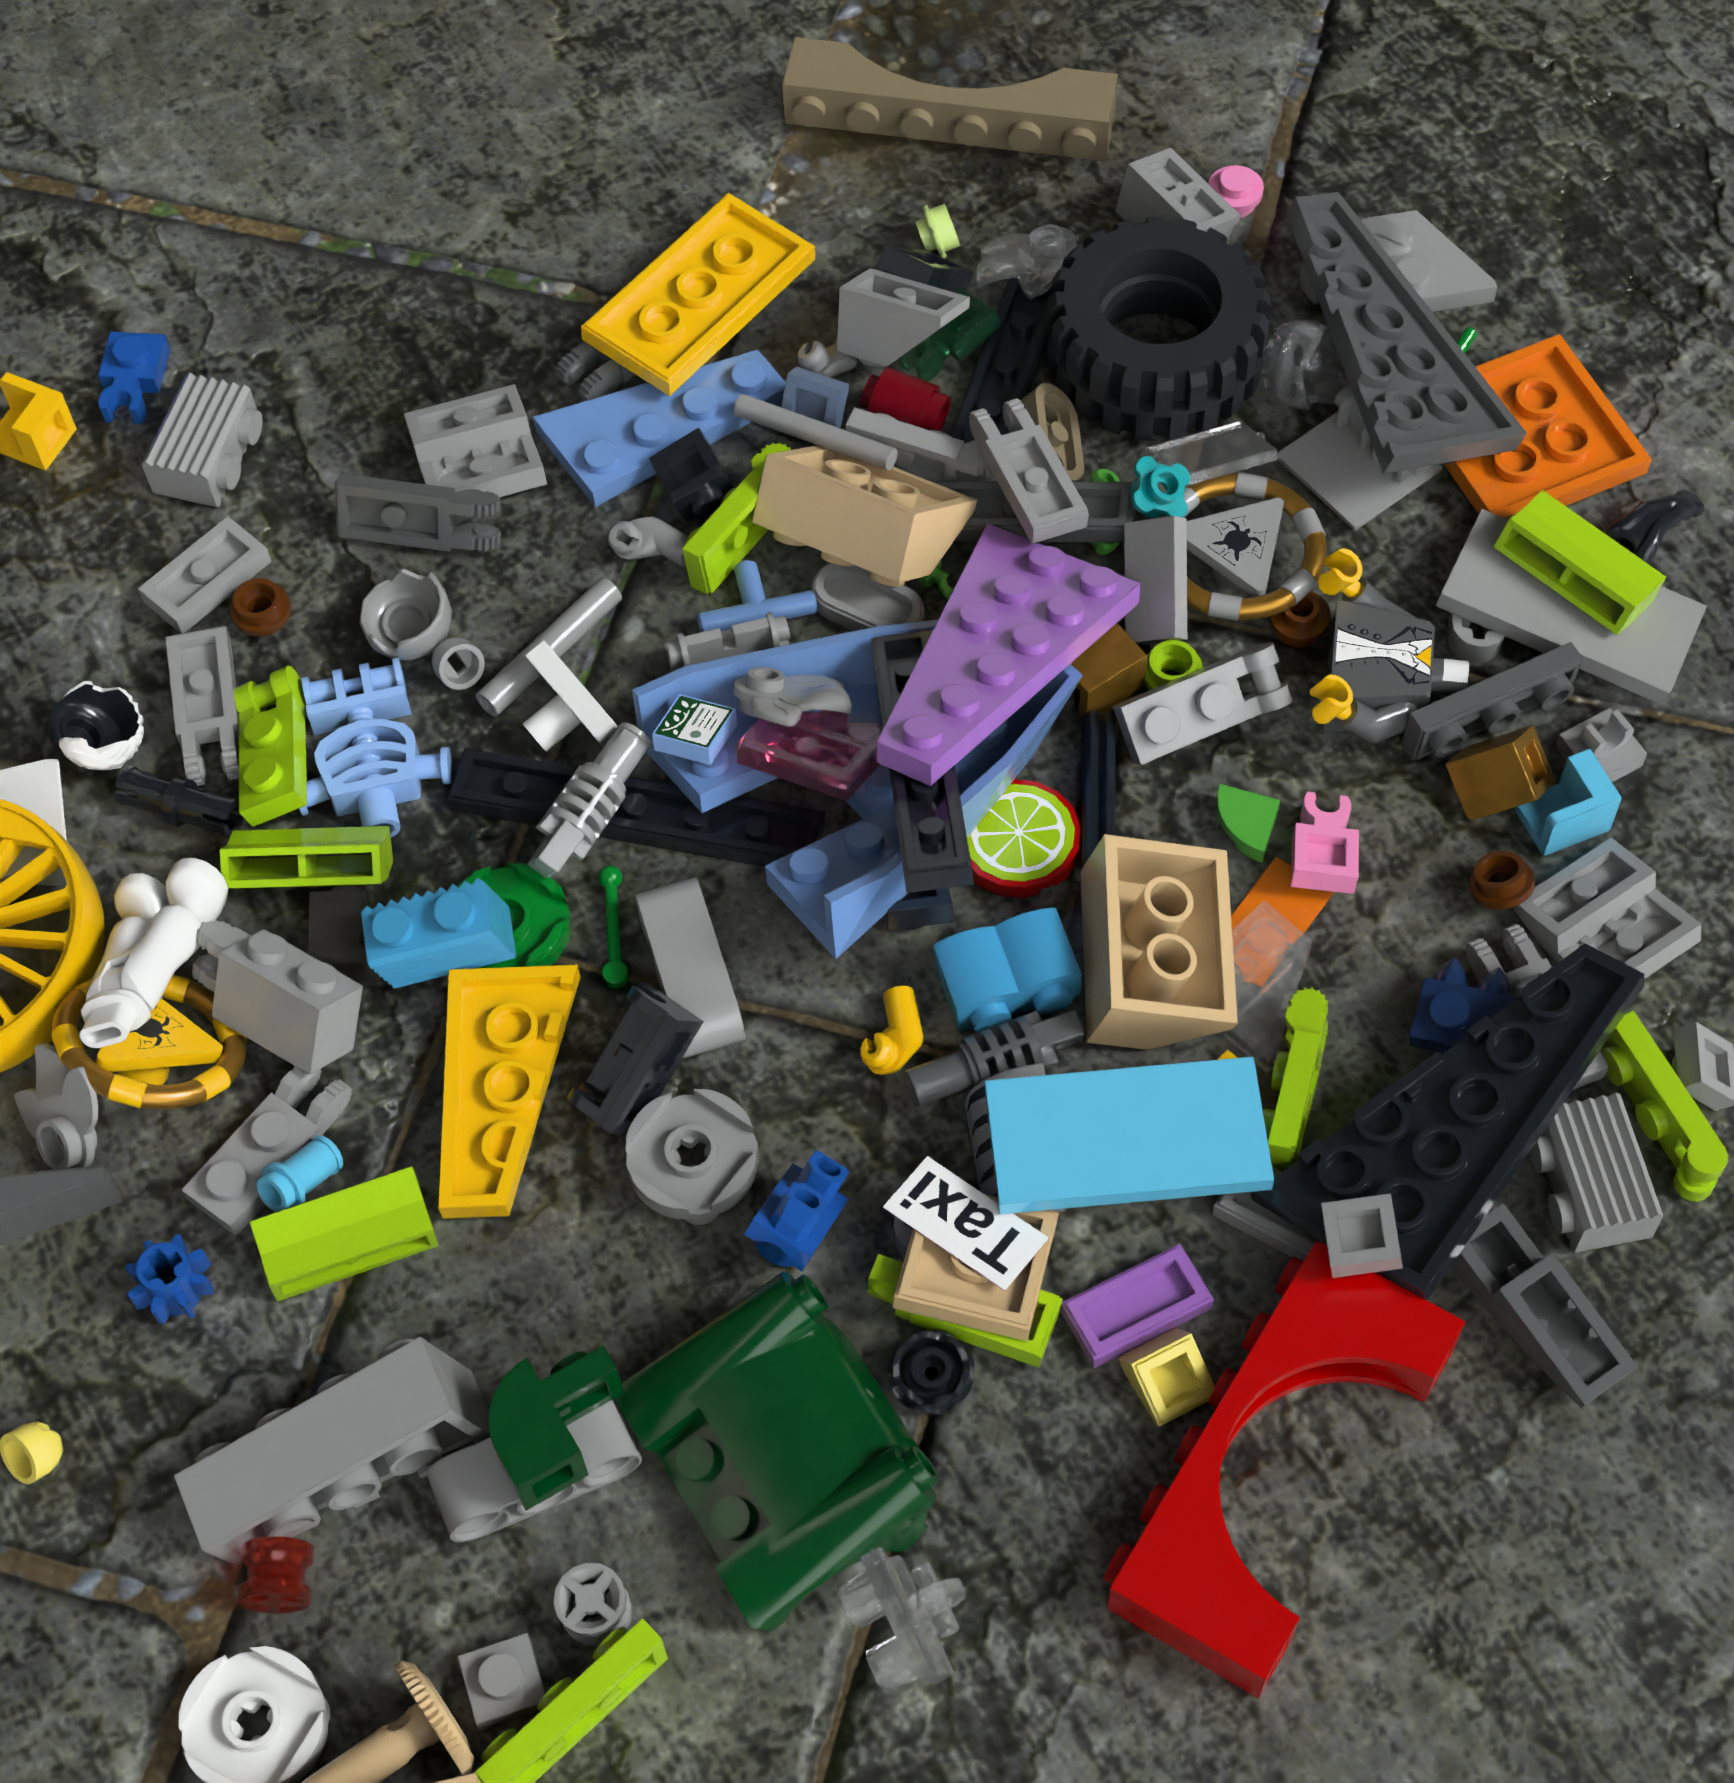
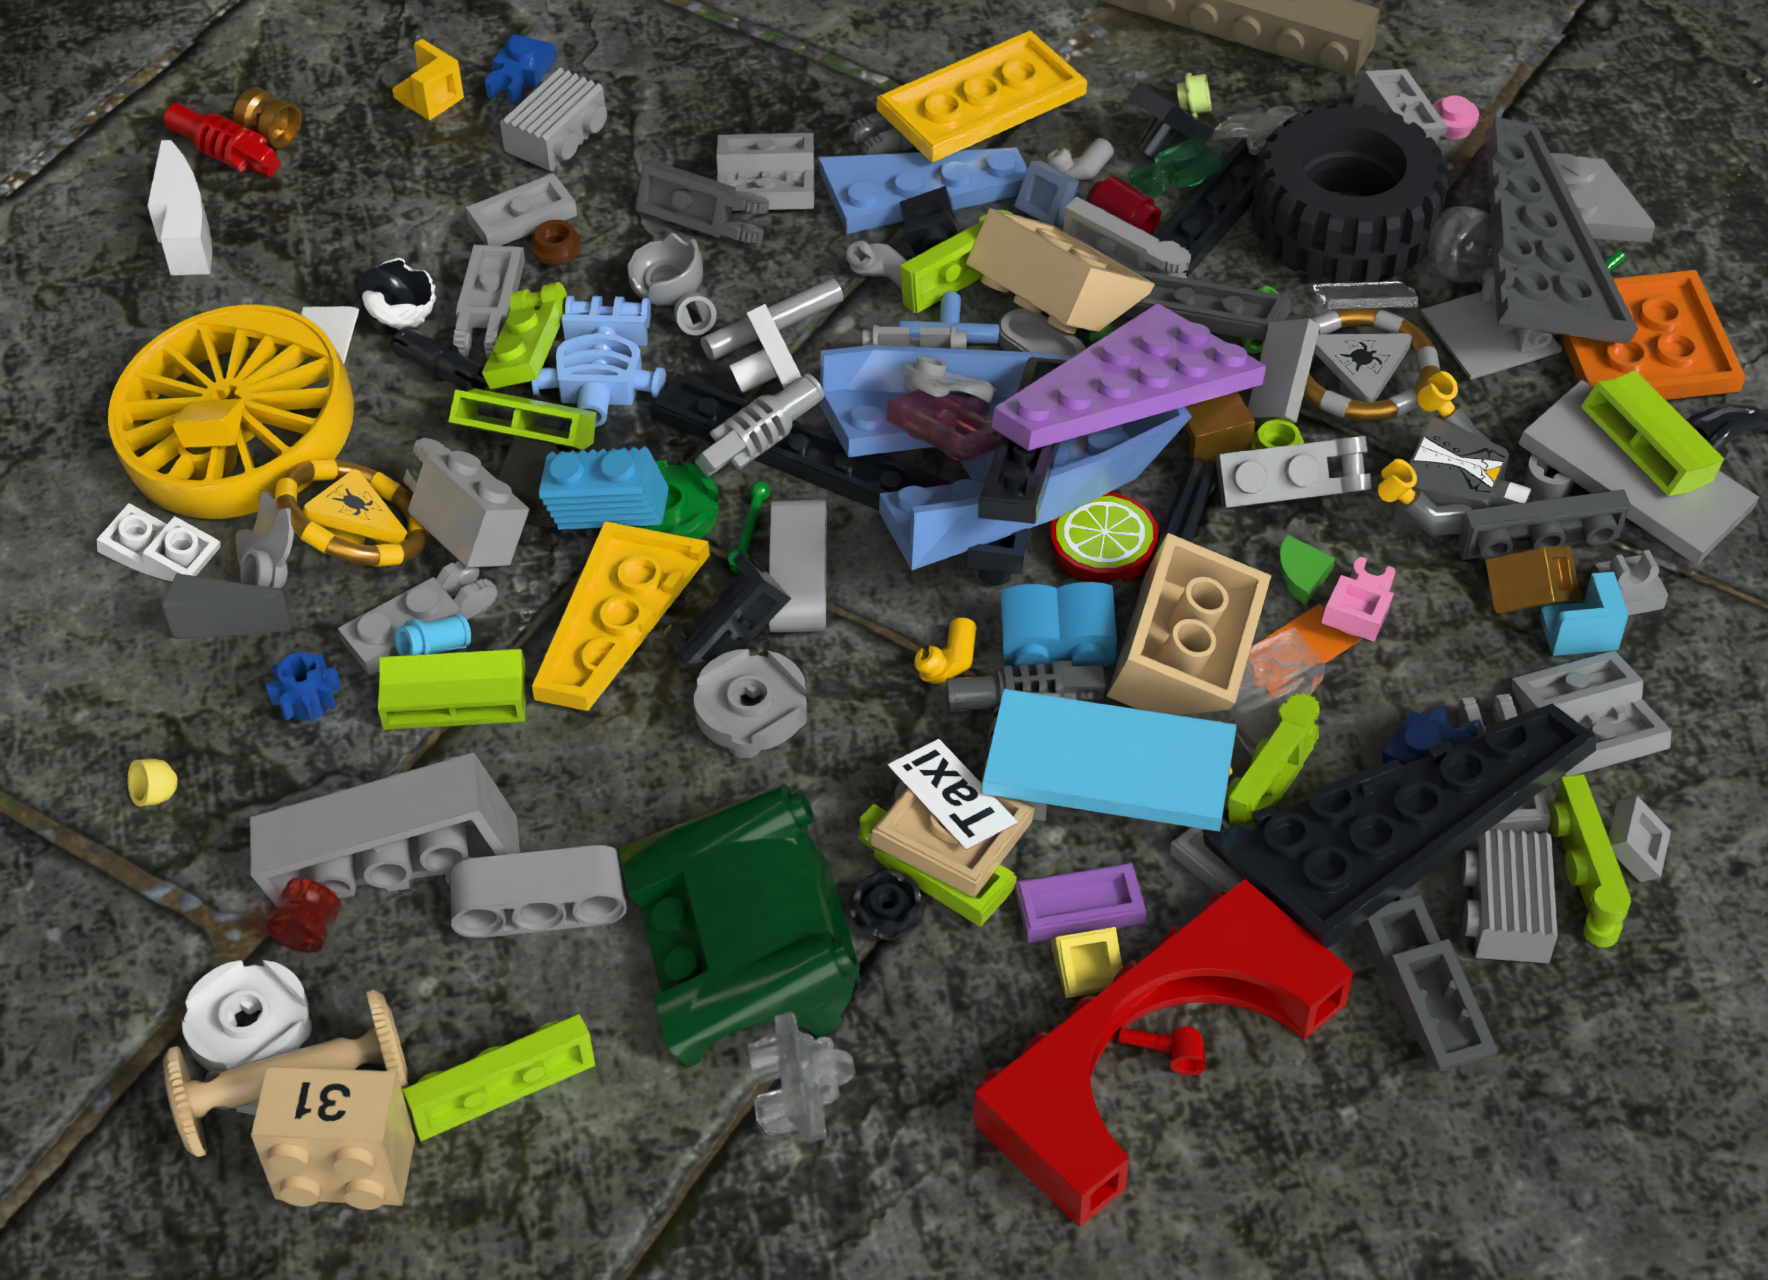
camera: 15 degrees right, 10 degrees down
(148, 946) = (377, 443): white piece -> none
(502, 1682) = (453, 1038): light grey plate -> none
(532, 1418) = (545, 838): dark green brick -> none
(582, 1594) = (544, 988): light grey wheel -> none
(694, 729) = (861, 390): tile -> none
(799, 1212) = (820, 755): blue hips -> none
(816, 432) = (1040, 210): light grey bar -> none
(890, 315) = (1128, 137): light grey slope -> none
(1029, 473) = (1202, 270): light grey hinge -> none
(1060, 423) = (1235, 253): dark tan plate -> none
(1147, 496) = (1296, 307): teal plate -> none
(1305, 630) = (1399, 435): reddish brown plate -> none
(1305, 1451) = (1183, 1044): none -> red hand
(1361, 1235) = (1281, 876): light grey plate -> none
(1501, 881) = (1505, 659): reddish brown plate -> none

